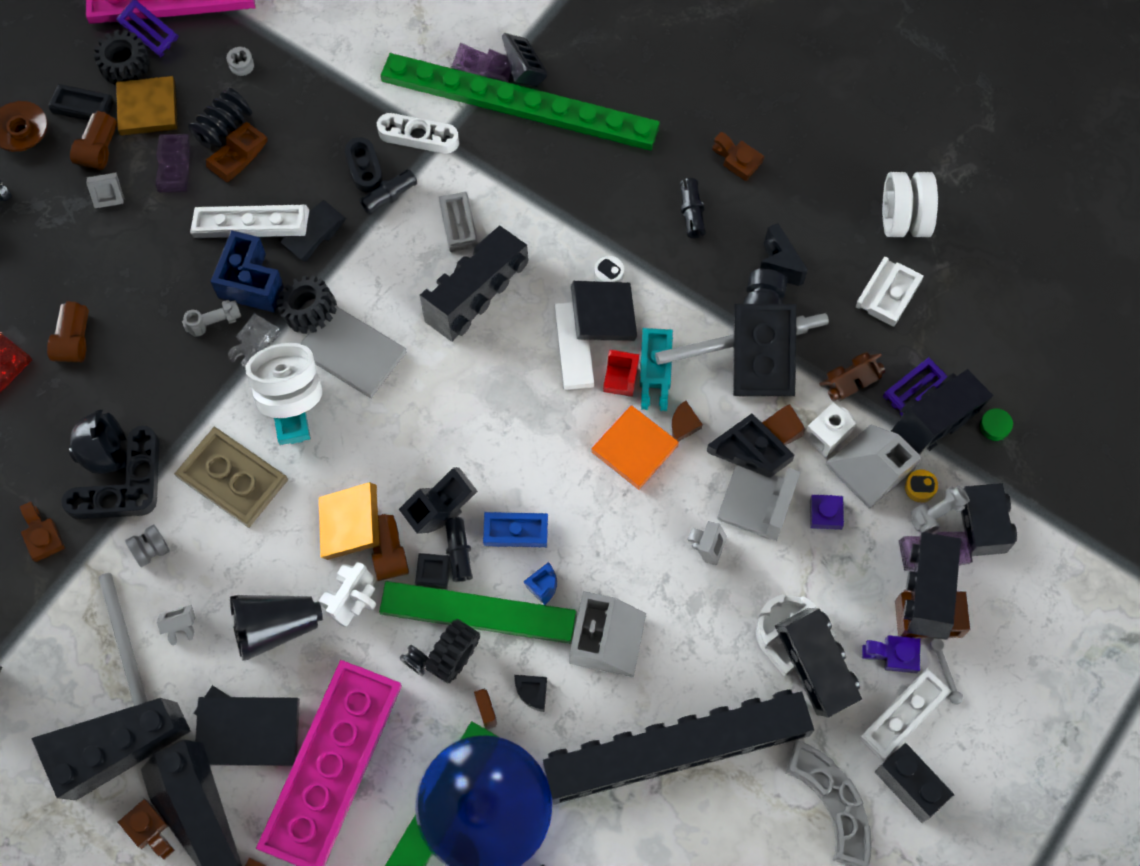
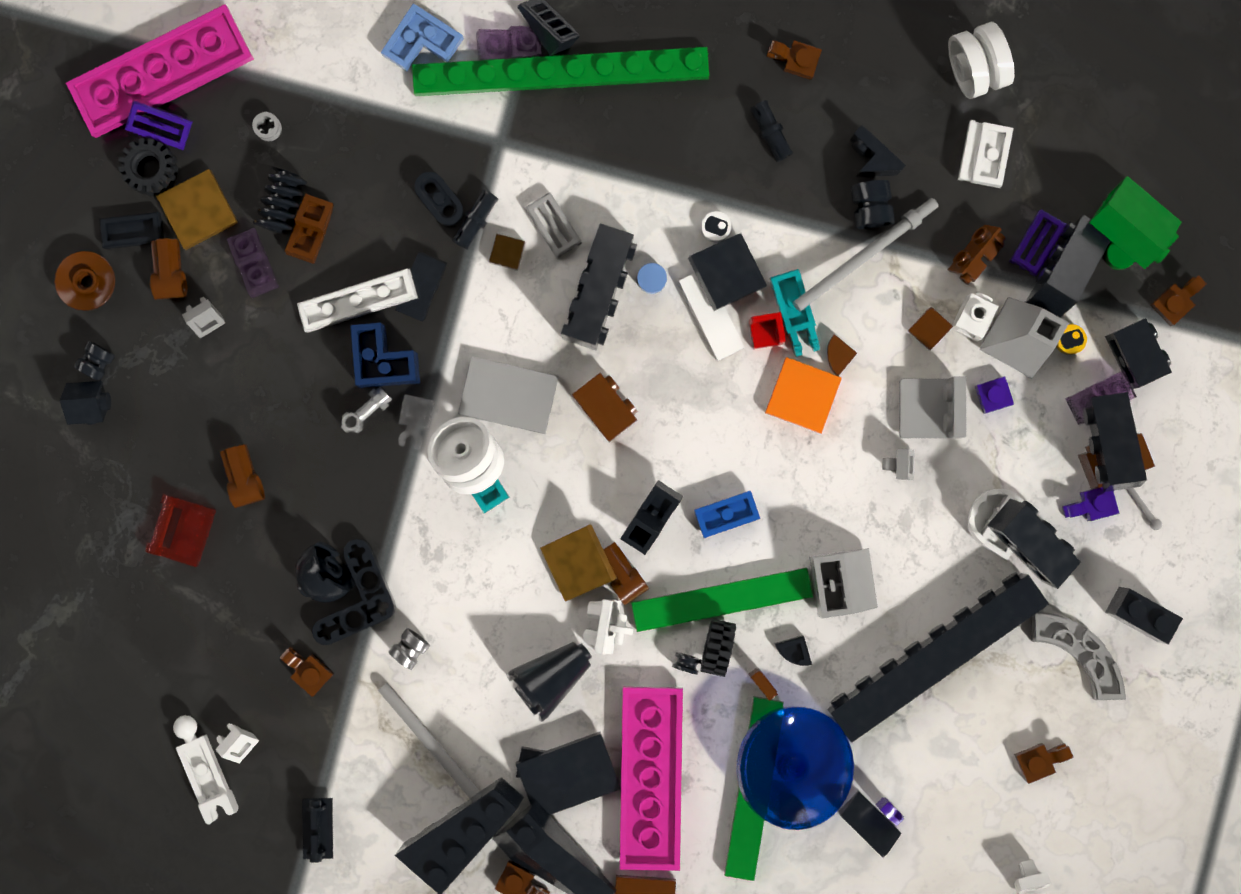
camera: 20 degrees left, 20 degrees up
(177, 620) = (466, 705): light grey tile -> none
(231, 476) = (451, 555): dark tan tile -> none
(314, 314) = (434, 364): black tyre -> none
(405, 229) = (507, 252): none -> dark brown tile
(406, 29) = (417, 31): none -> medium blue plate
(410, 123) = (455, 153): white beam -> none
(433, 571) = (668, 576): black tile -> none
(437, 389) = (605, 406): none -> reddish brown brick
(458, 549) = (683, 550): black axle -> none
(530, 295) = (652, 278): none -> medium blue tile
(542, 583) = (769, 554): blue tile -> none
(752, 447) = (910, 360): black wing -> none
(764, 350) = (891, 261): black tile -> none
(905, 714) = (1117, 555): white tile -> none
(926, 518) = (1085, 372): light grey bar -> none
(1018, 392) = (1137, 223): none -> green brick
(1040, 487) = (1176, 302): none -> reddish brown plate

